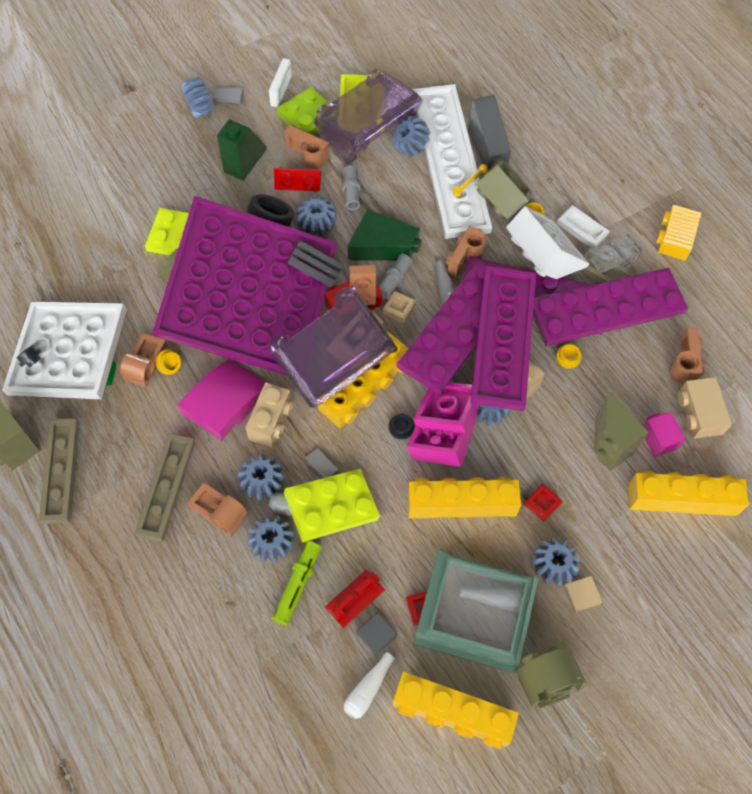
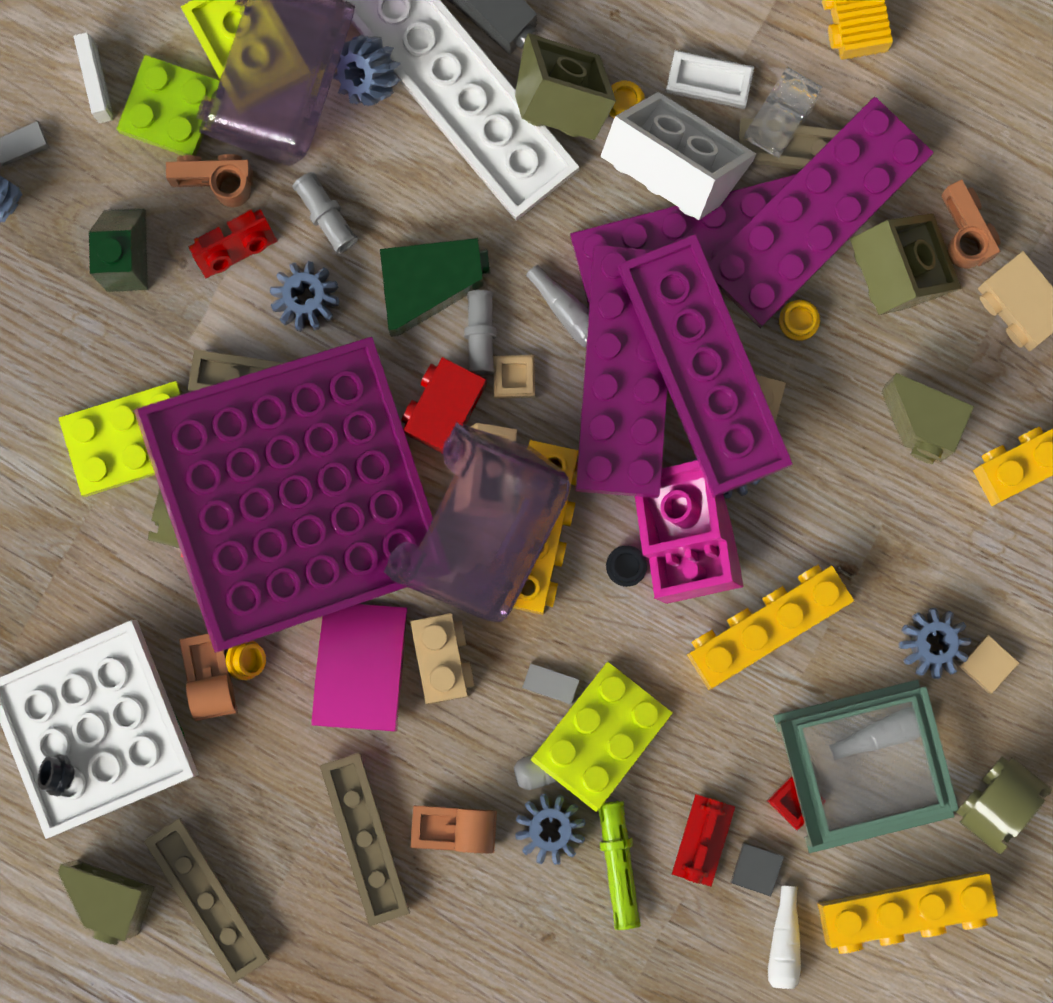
camera: 25 degrees left, 20 degrees up
(251, 482) = (469, 755): sand blue gear -> none
(271, 209) = (231, 318): black tyre -> none
(317, 260) = (399, 392): dark grey tile -> none
(364, 281) = (460, 399): nougat plate -> none
(457, 191) = (493, 131): yellow hinge -> none
(465, 249) = (555, 252): nougat plate -> none
(543, 502) = (874, 565): red tile -> none
(643, 356) = (905, 263): none -> olive slope
(663, 434) = (985, 372): dark pink brick -> none

